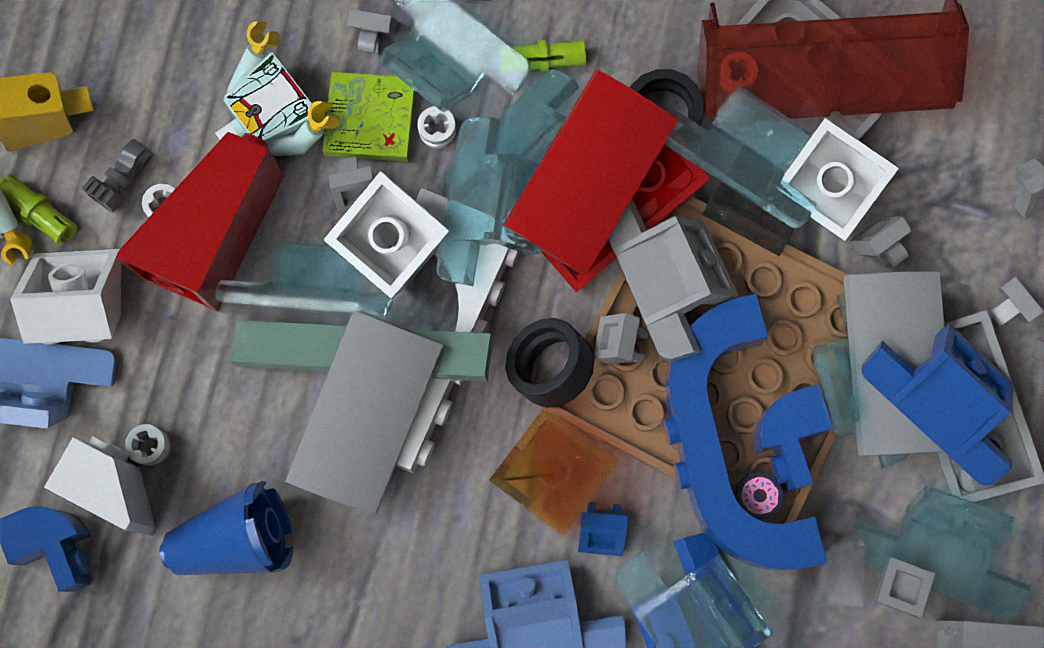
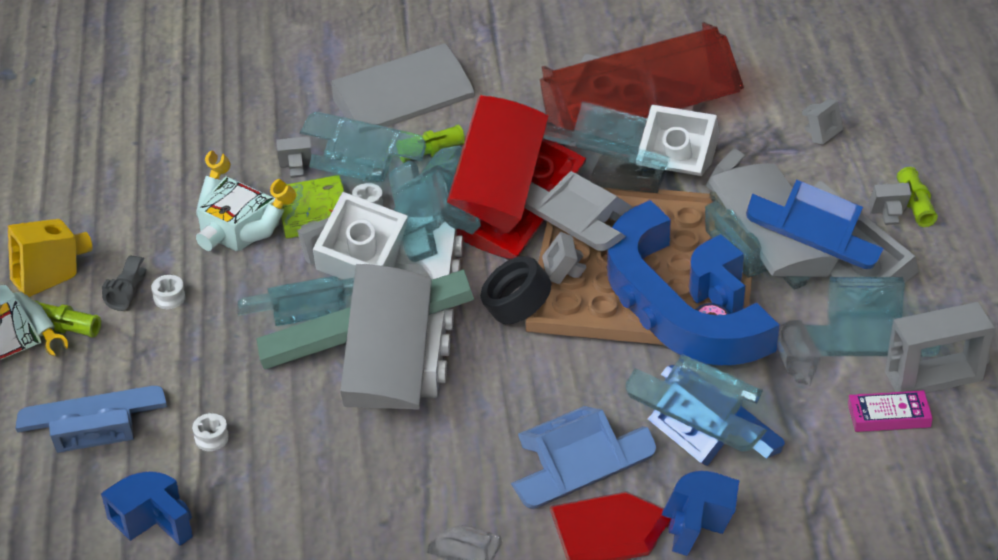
camera: 20 degrees left, 35 degrees down
(69, 297) = (115, 357): white slope -> none
(104, 483) = (190, 446): white slope -> none
(206, 221) = (207, 280): red slope -> none
(232, 536) = (304, 455): blue cone -> none
(553, 472) = (550, 347): clear orange slope -> none
(602, 532) = (604, 380): blue tile -> none
(904, 587) = (847, 345): light grey tile -> none
(1017, 302) = (843, 178): light grey tile -> none

